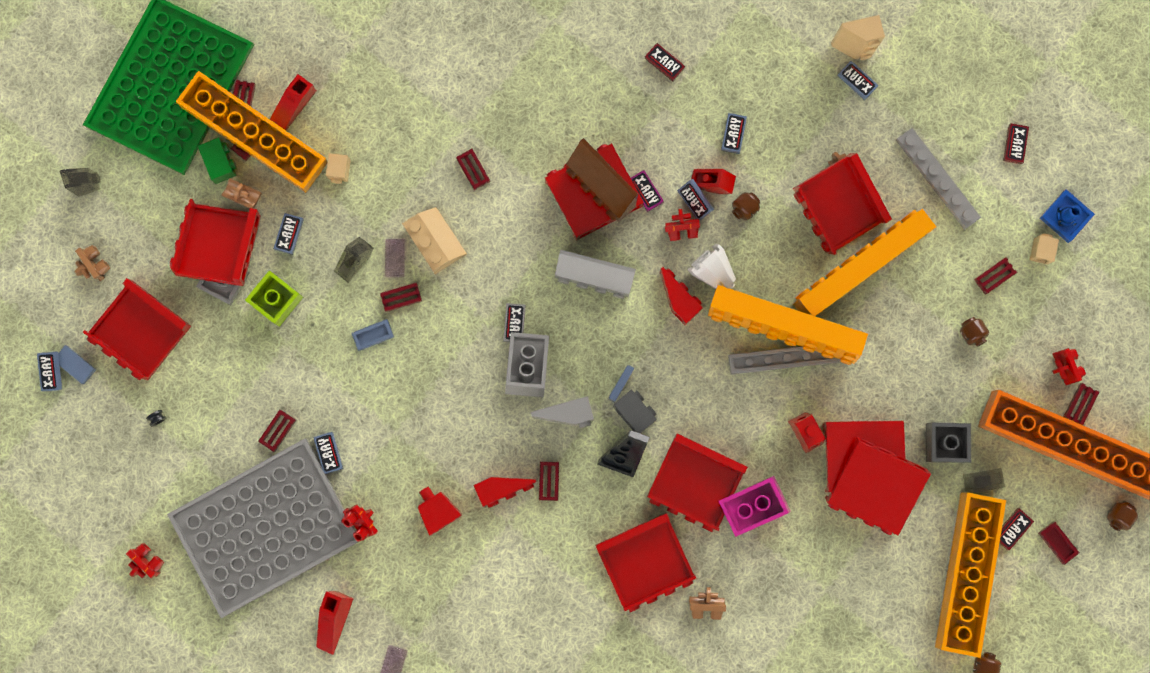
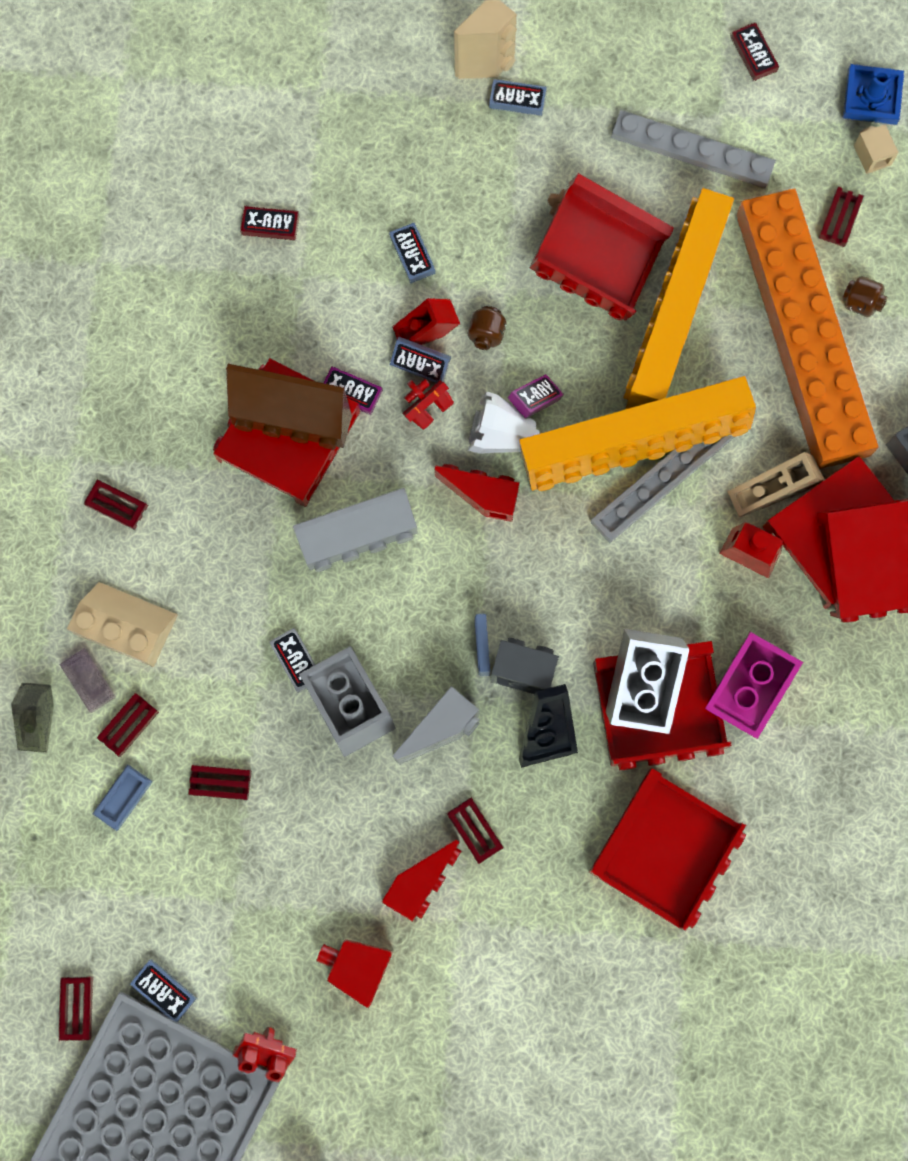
camera: 30 degrees left, 5 degrees down
(417, 352) = (194, 780): none -> dark red tile
(696, 464) = (646, 681): none -> light grey brick
(707, 602) = (780, 846): medium nougat hips -> none
(746, 264) = (535, 396): none -> tile
(847, 405) = (776, 484): none -> tan slope
(927, 327) = (806, 329): none -> orange brick

